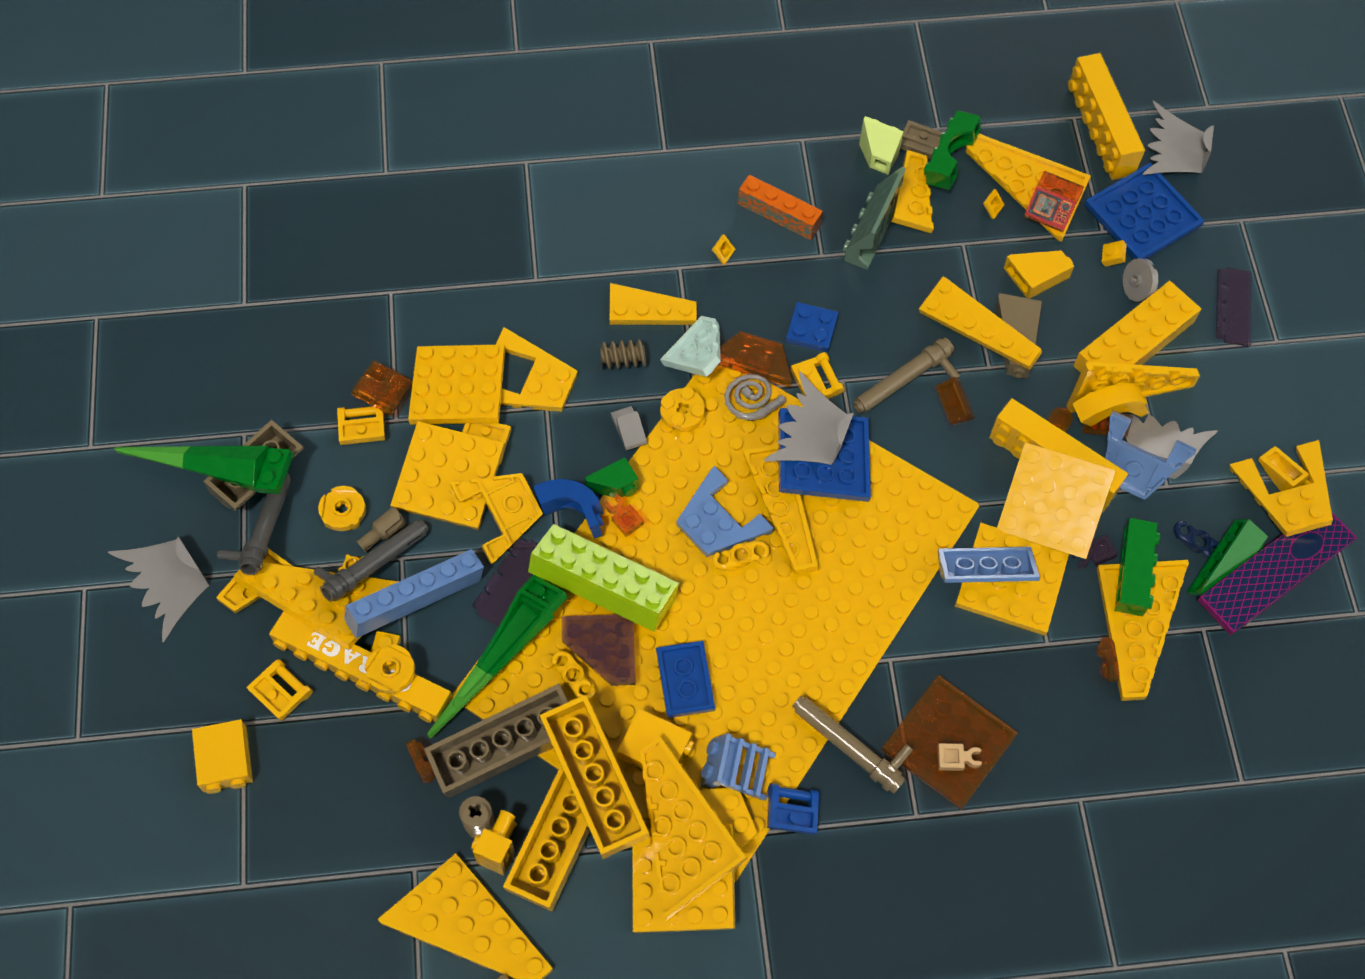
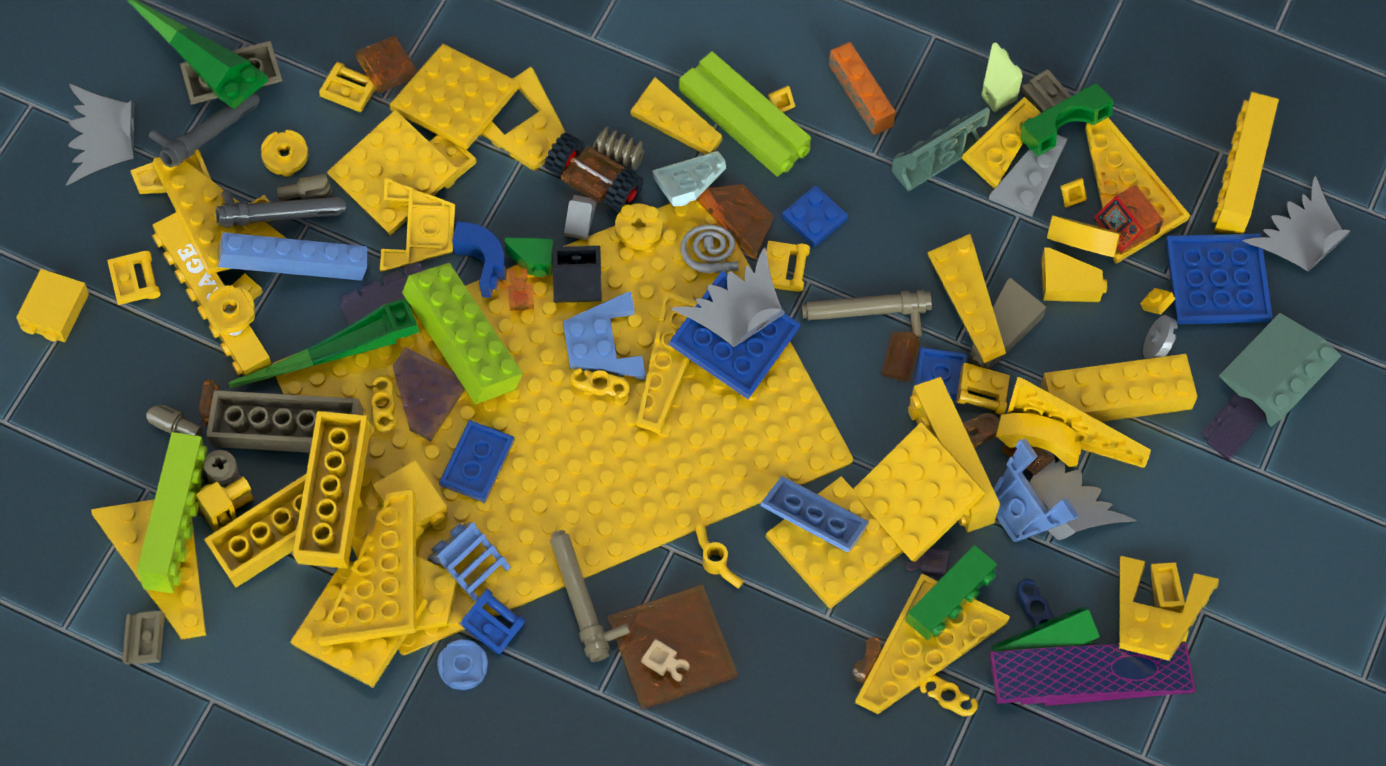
camera: 30 degrees right, 0 degrees up
(399, 796) = (172, 420): none -> dark tan arm
(459, 876) = (172, 514): none -> lime brick
(617, 386) = (593, 173): none -> plate
(663, 475) = (577, 274): none -> black slope
(703, 275) = (745, 114): none -> lime brick
(790, 861) = (462, 664): none -> medium blue tile
(932, 638) = (719, 549): none -> yellow piece
(952, 214) = (1028, 180): none -> light grey wing
(992, 396) = (943, 364): none -> blue tile
(1028, 232) = (1083, 236): none -> yellow slope
(1035, 386) = (983, 382): none -> yellow plate
(1197, 655) = (953, 705): none -> yellow piece
(1239, 254) = (1280, 366): none -> sand green piece

